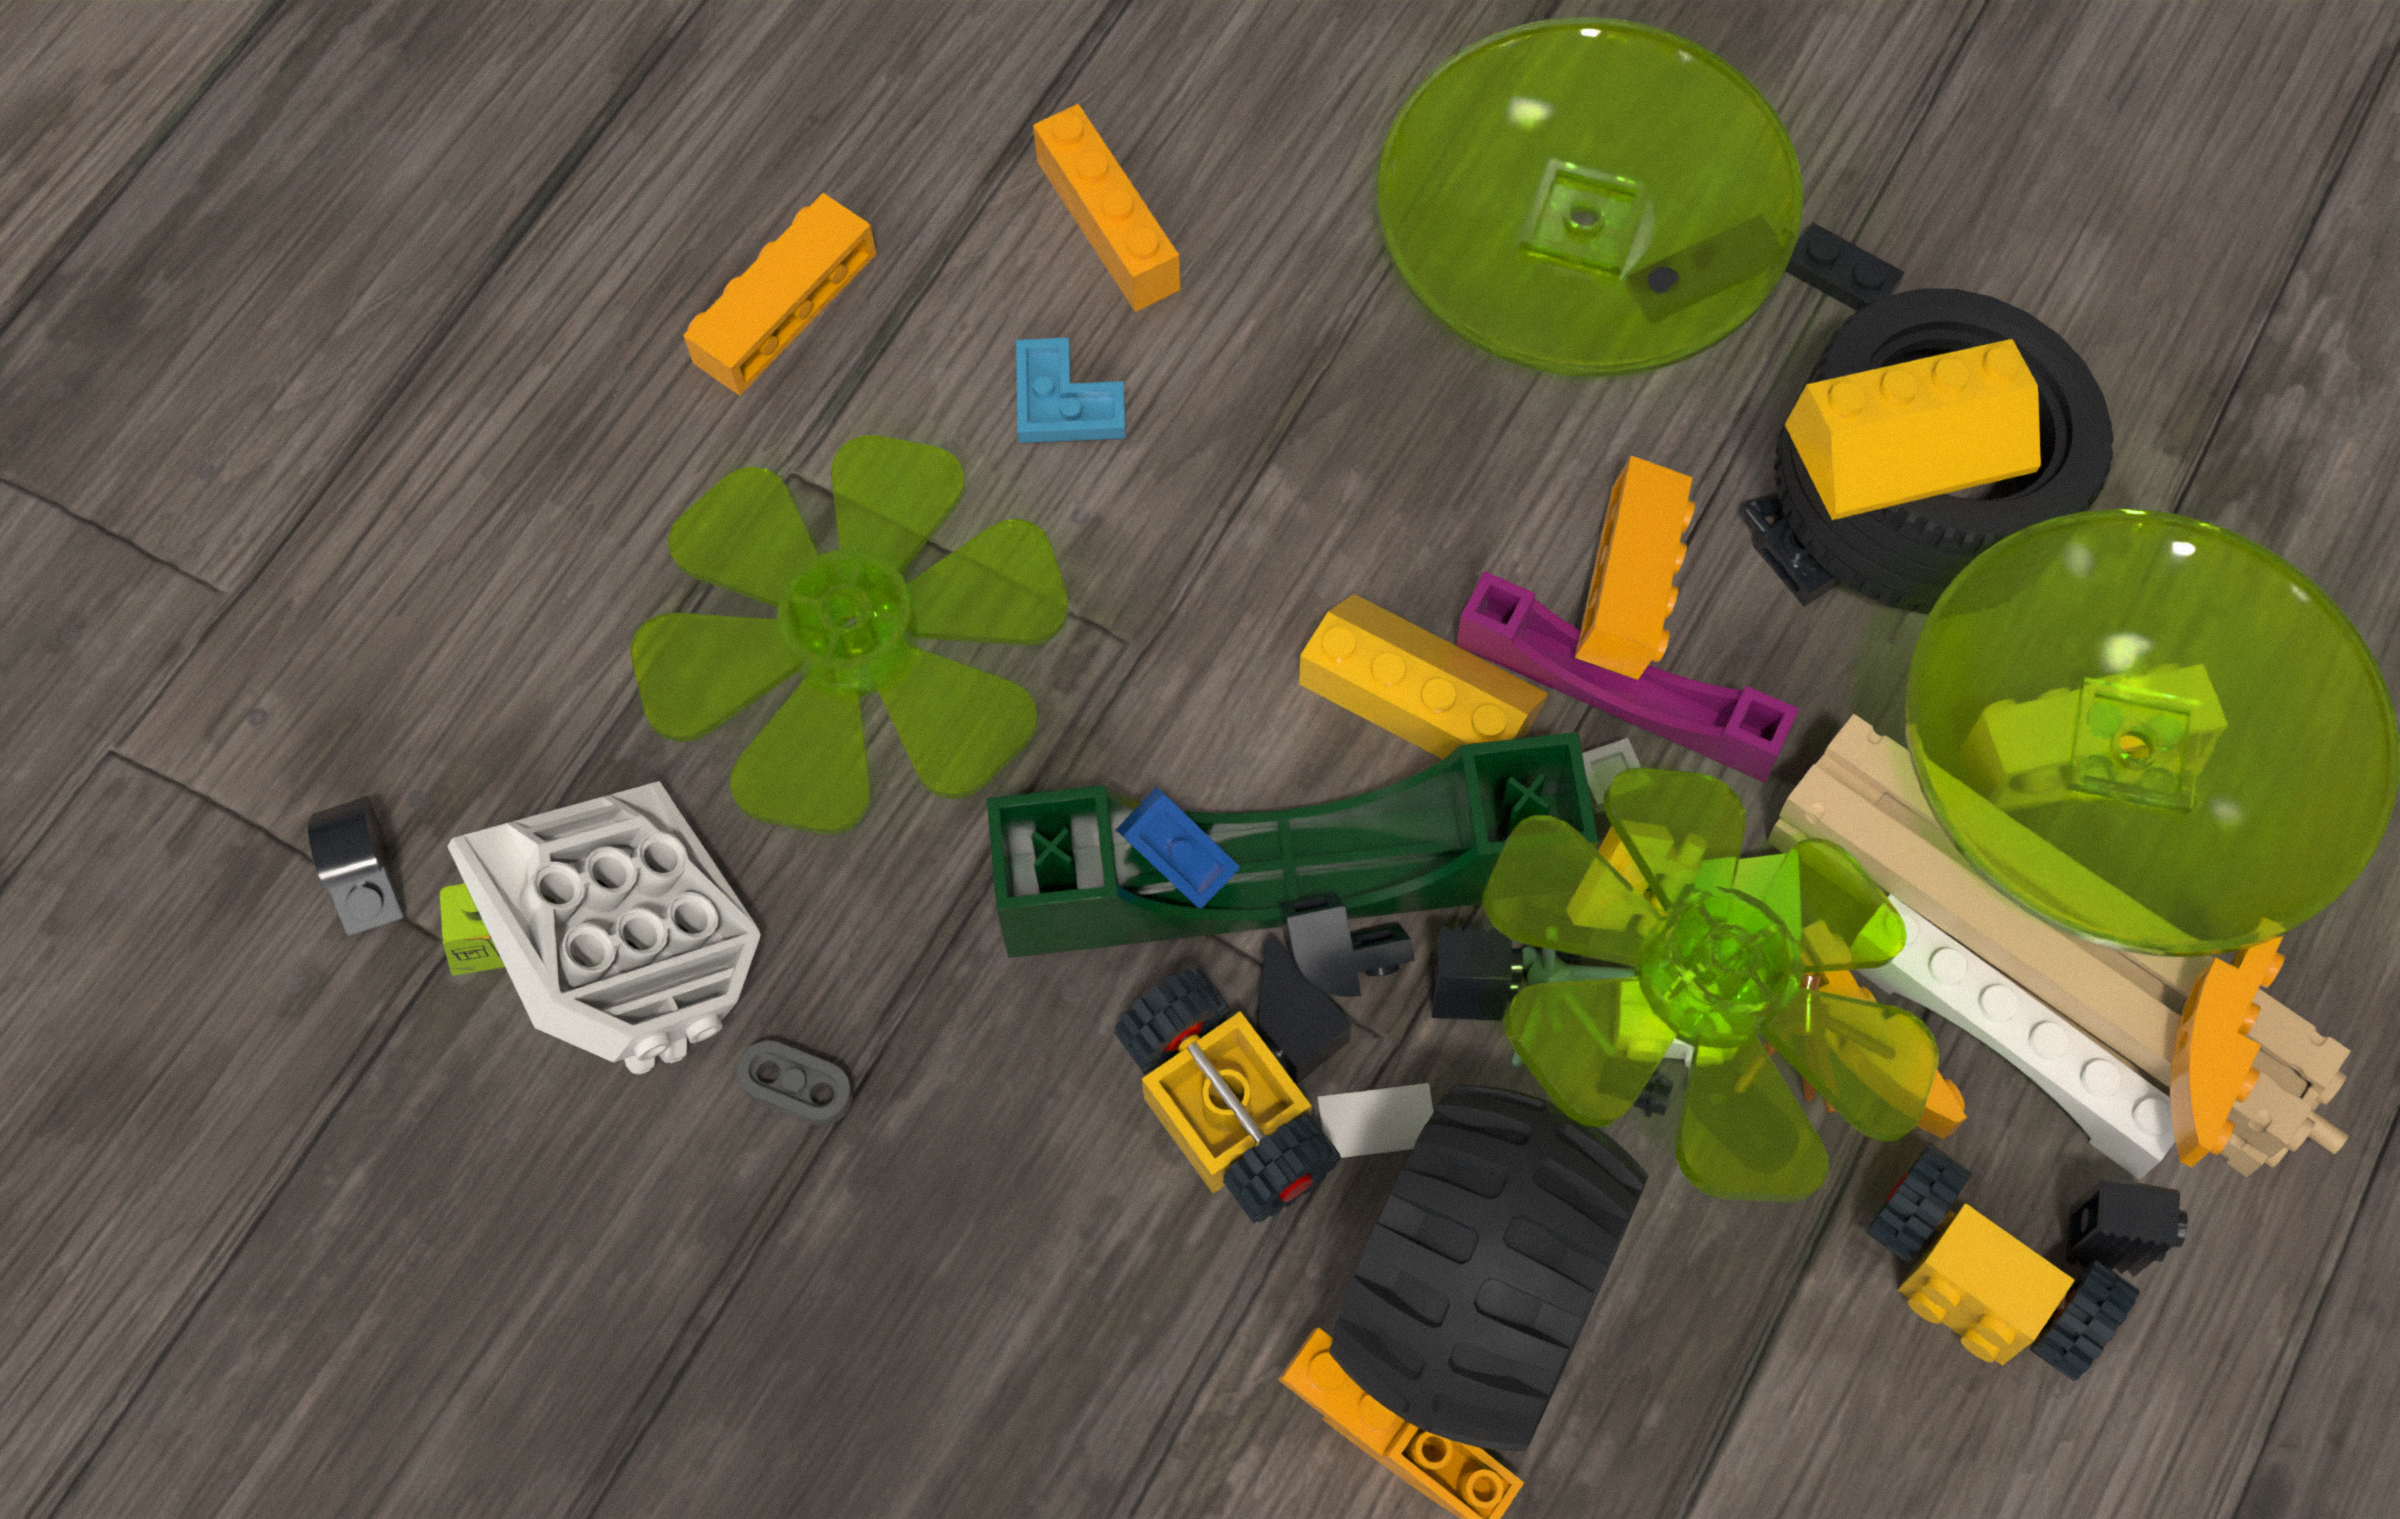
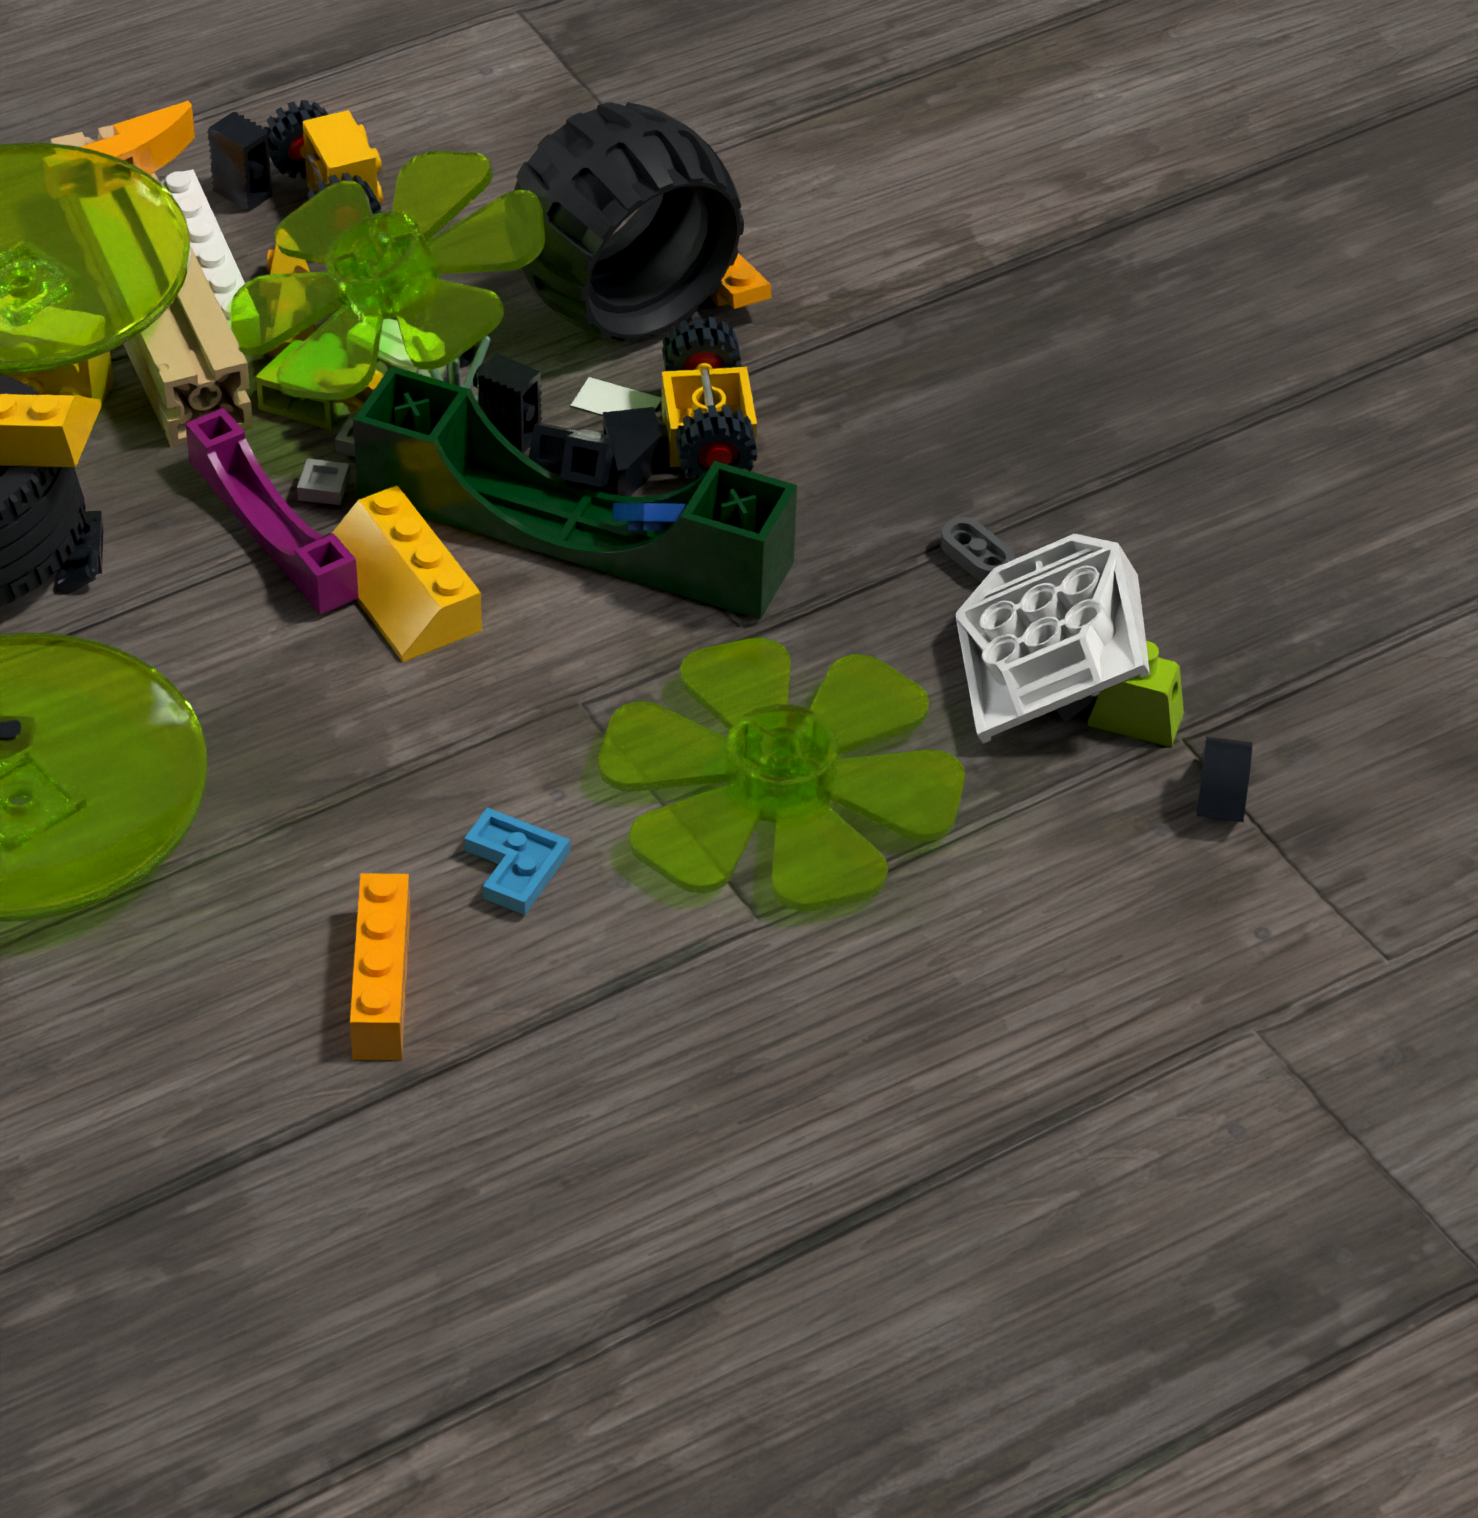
camera: 155 degrees left, 20 degrees down
(780, 293) = (687, 1025): light orange brick -> none
(1635, 569) = (207, 556): light orange brick -> none

